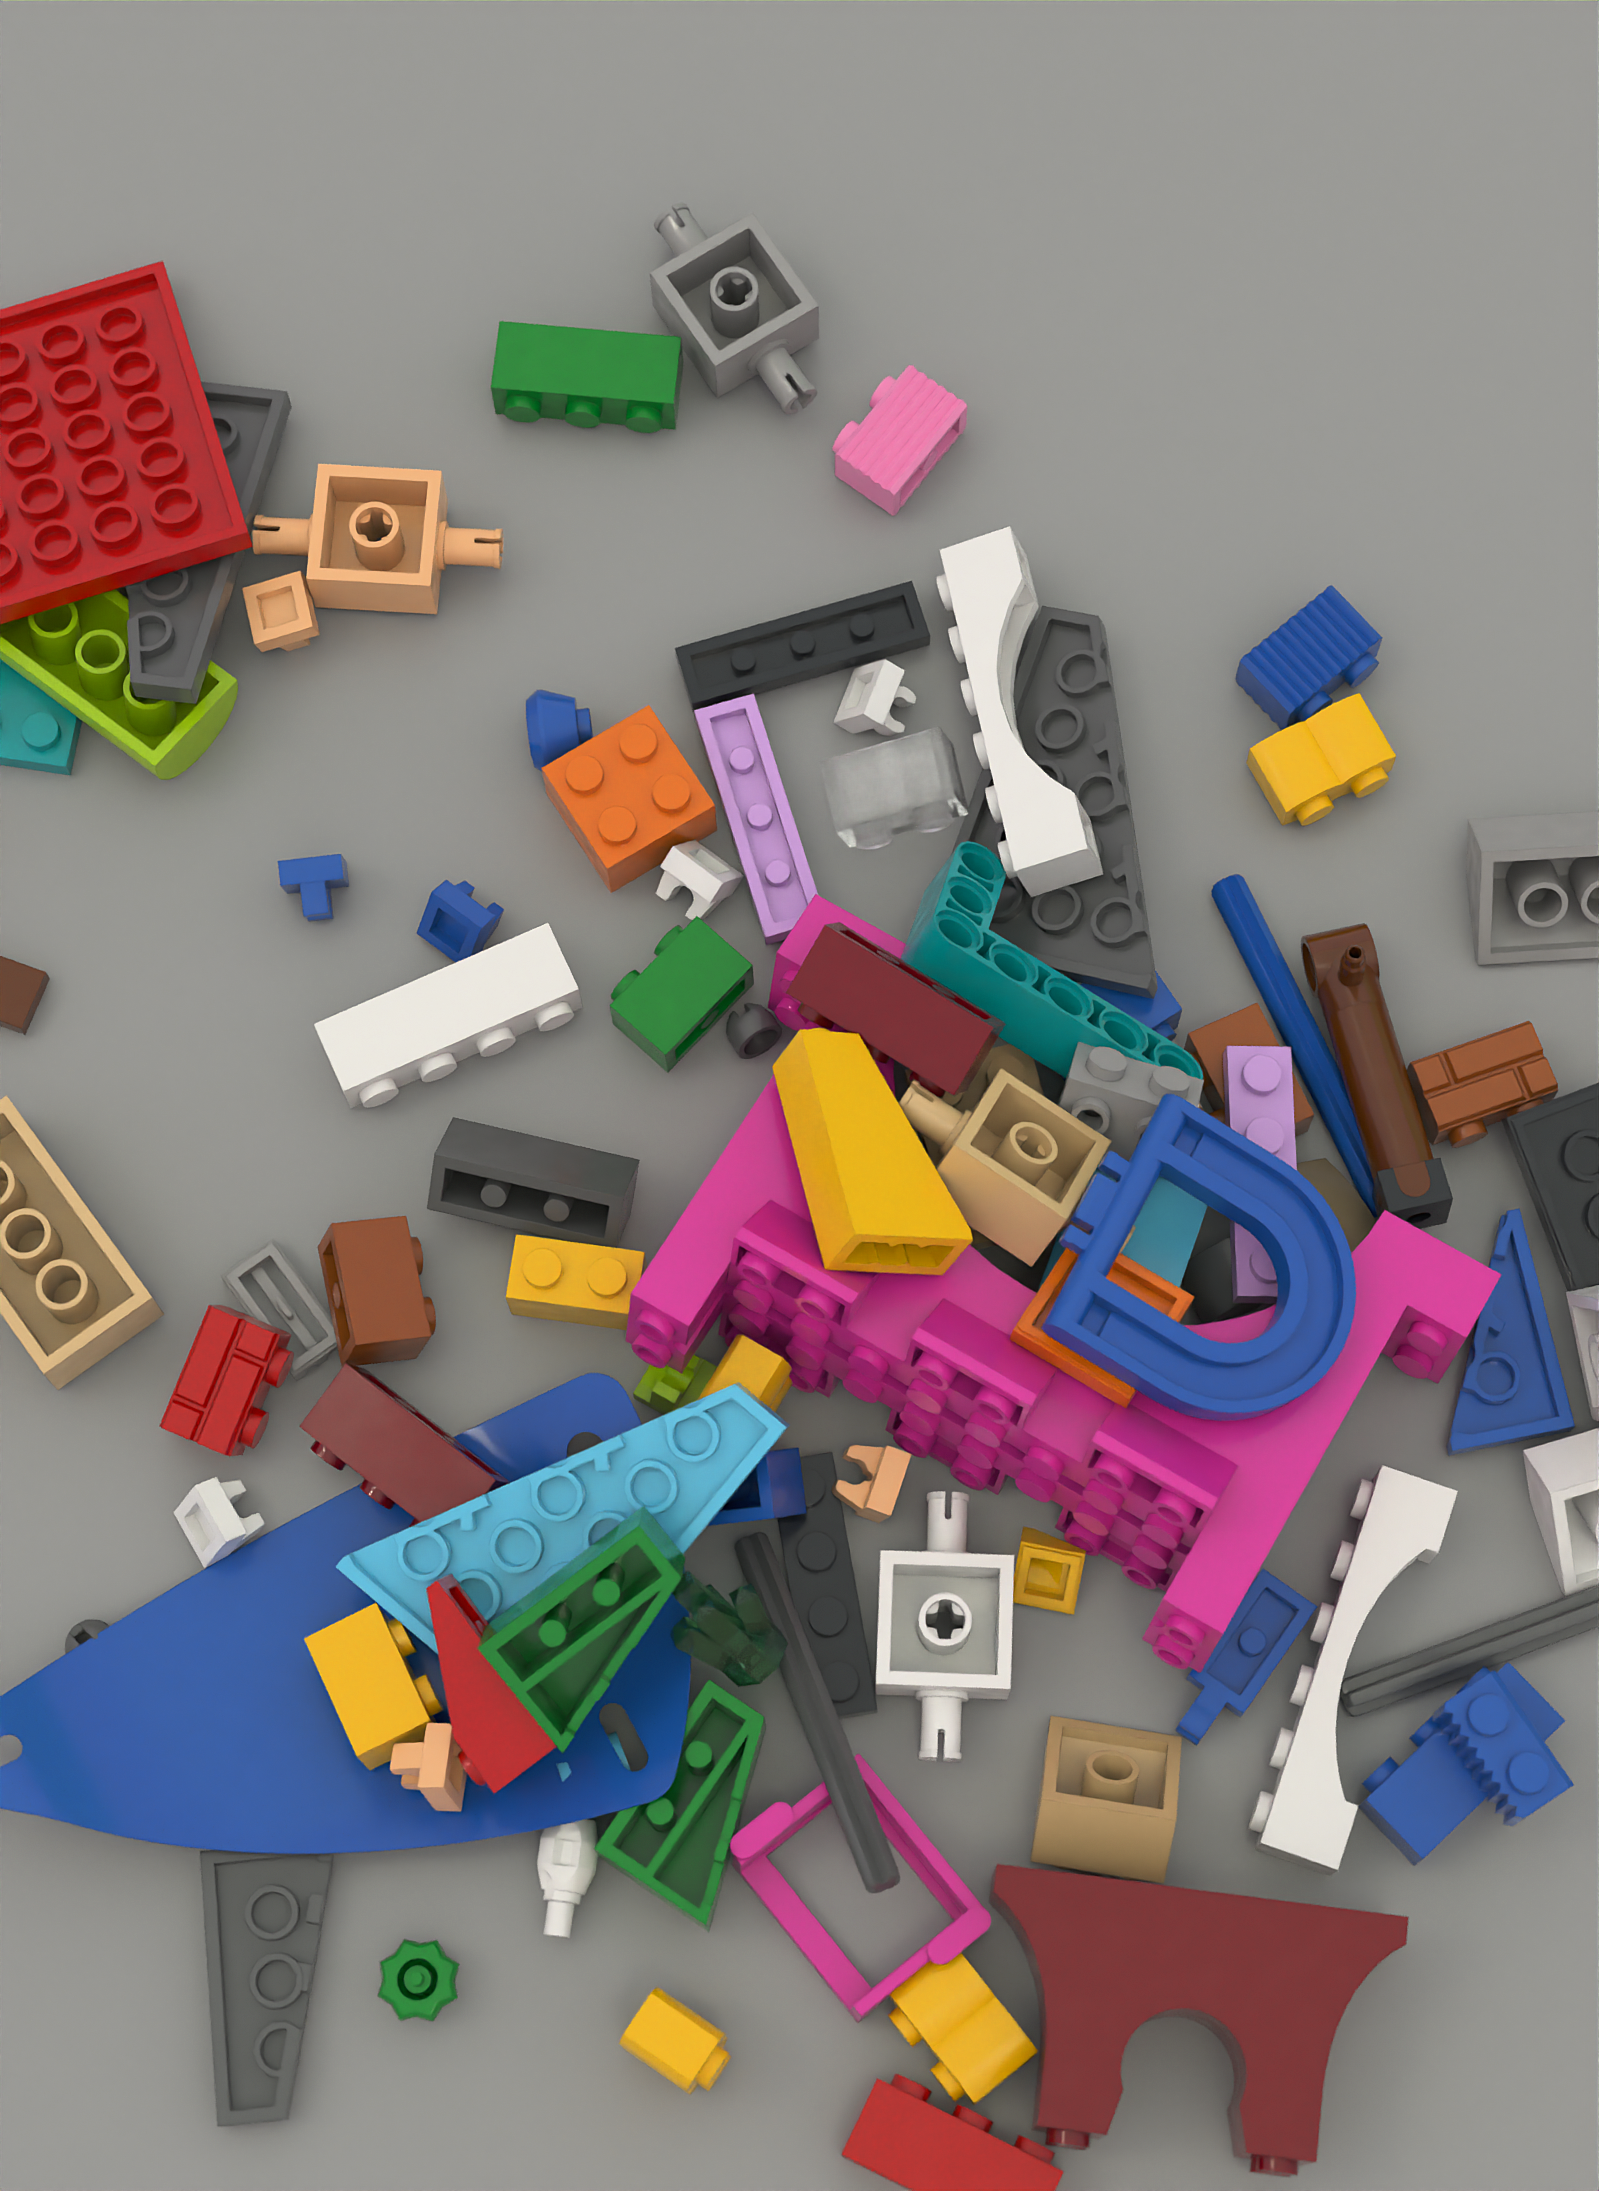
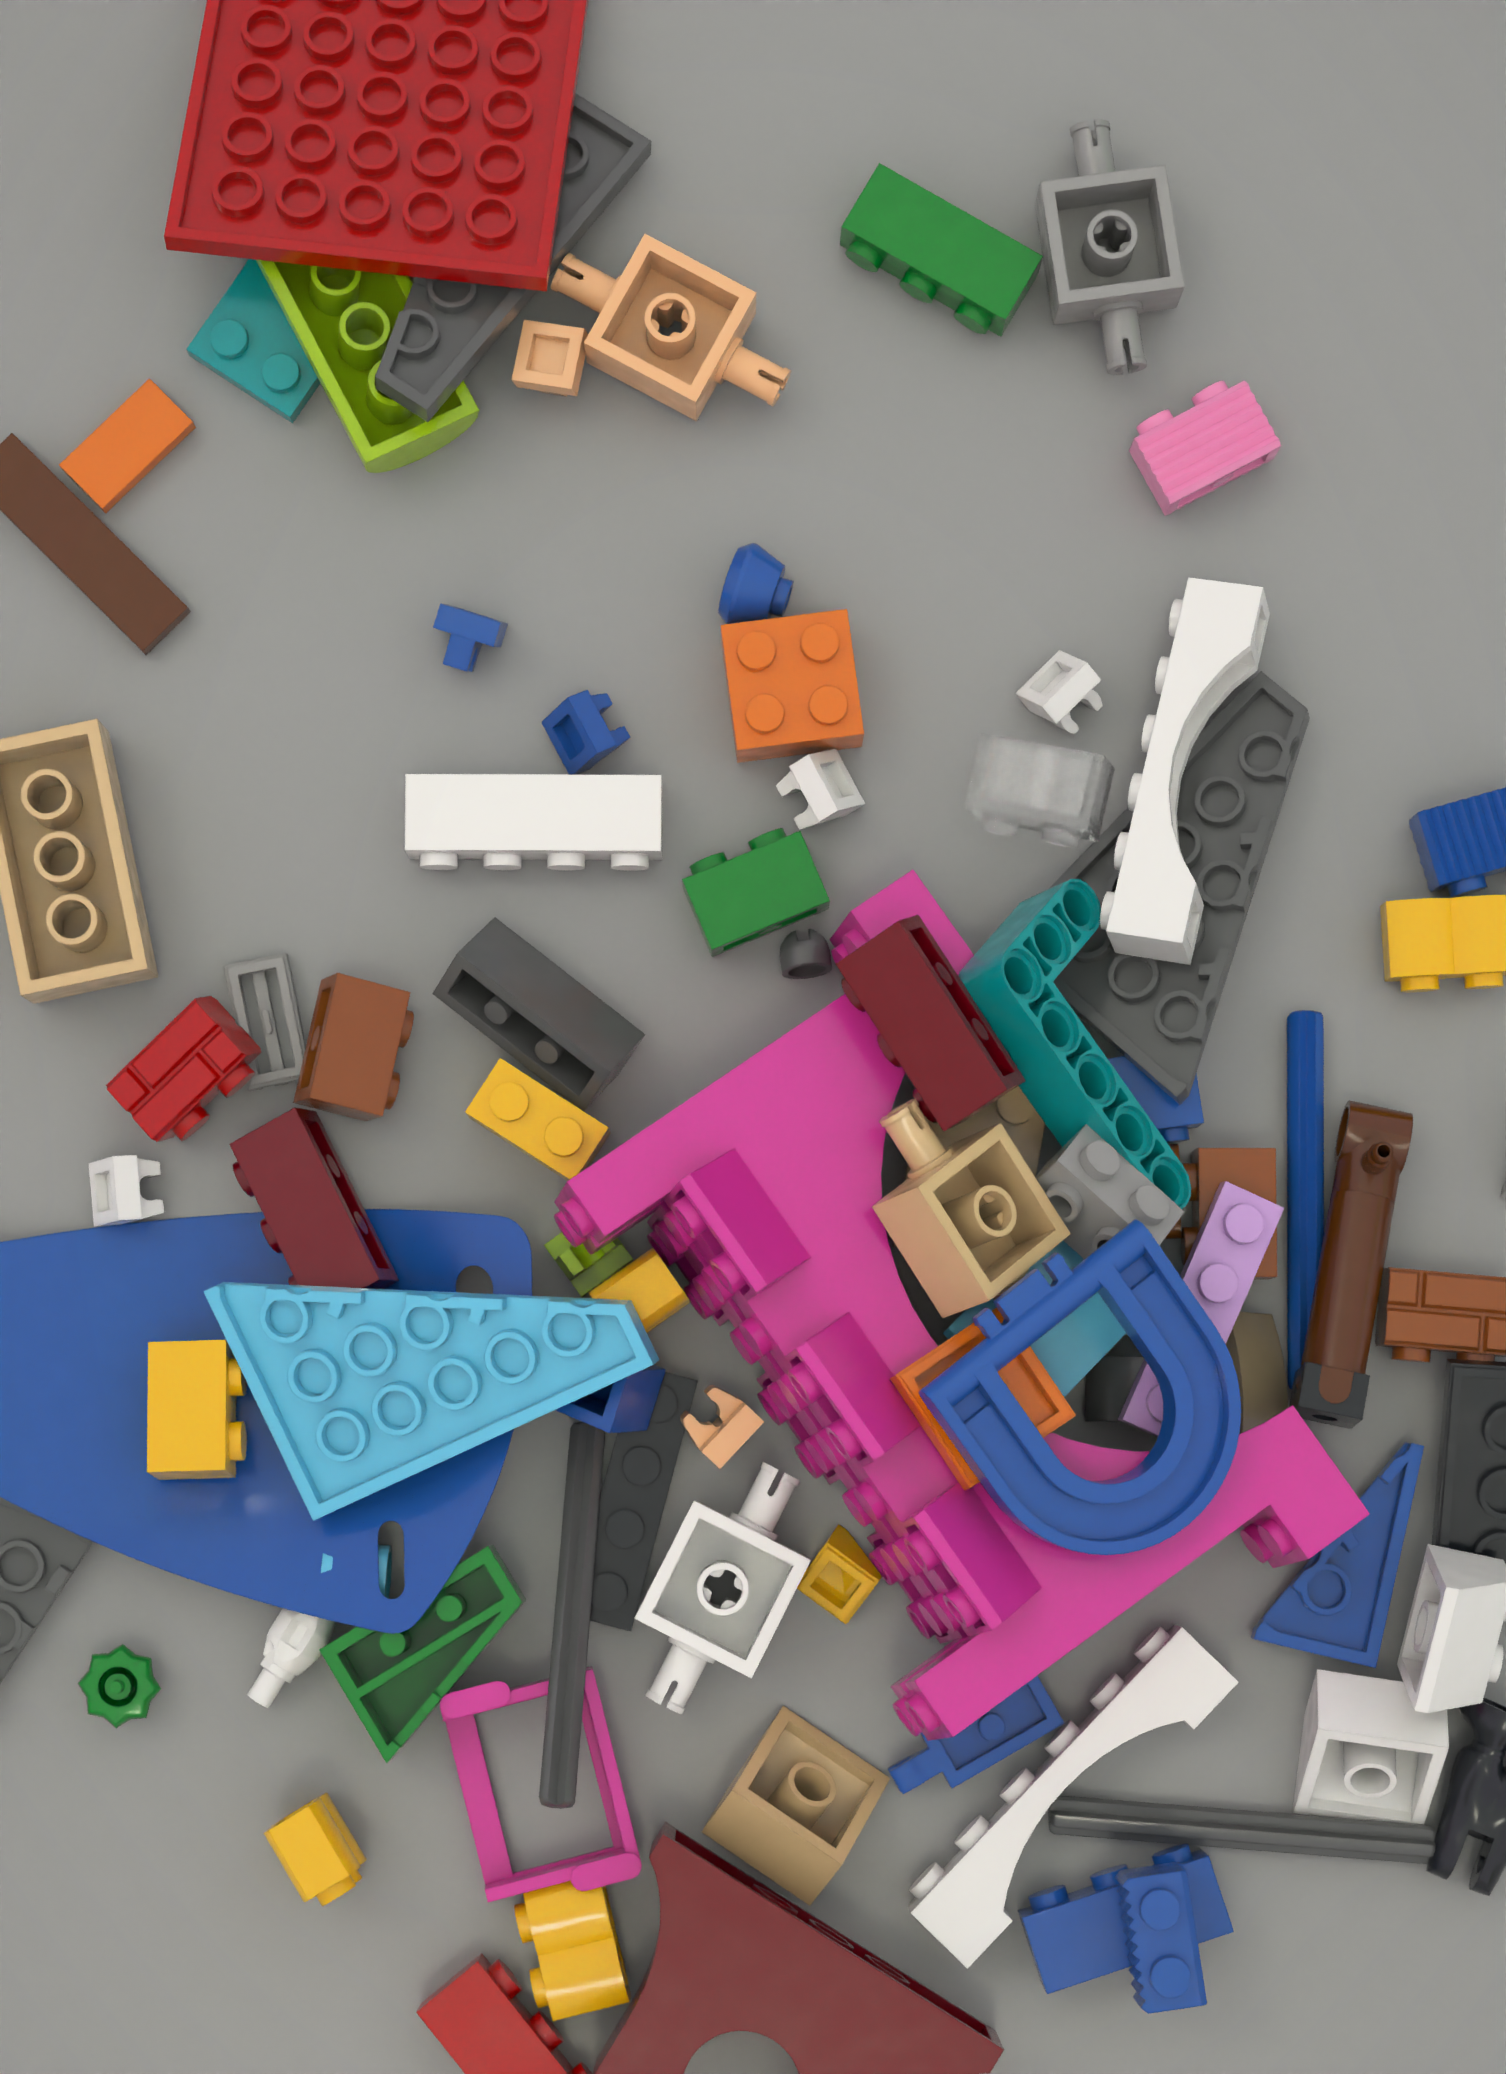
camera: 20 degrees right, 10 degrees up
(432, 1767) = (214, 1509): light nougat tile -> none
(485, 1715) = (286, 1480): red slope -> none
(582, 1622) = (393, 1452): green wedge -> none
(732, 1640) = (523, 1511): clear green rock -> none
(757, 813) = (903, 755): lavender plate -> none
(803, 645) = (1020, 608): black plate -> none
(861, 1163) = (829, 1157): yellow slope -> none

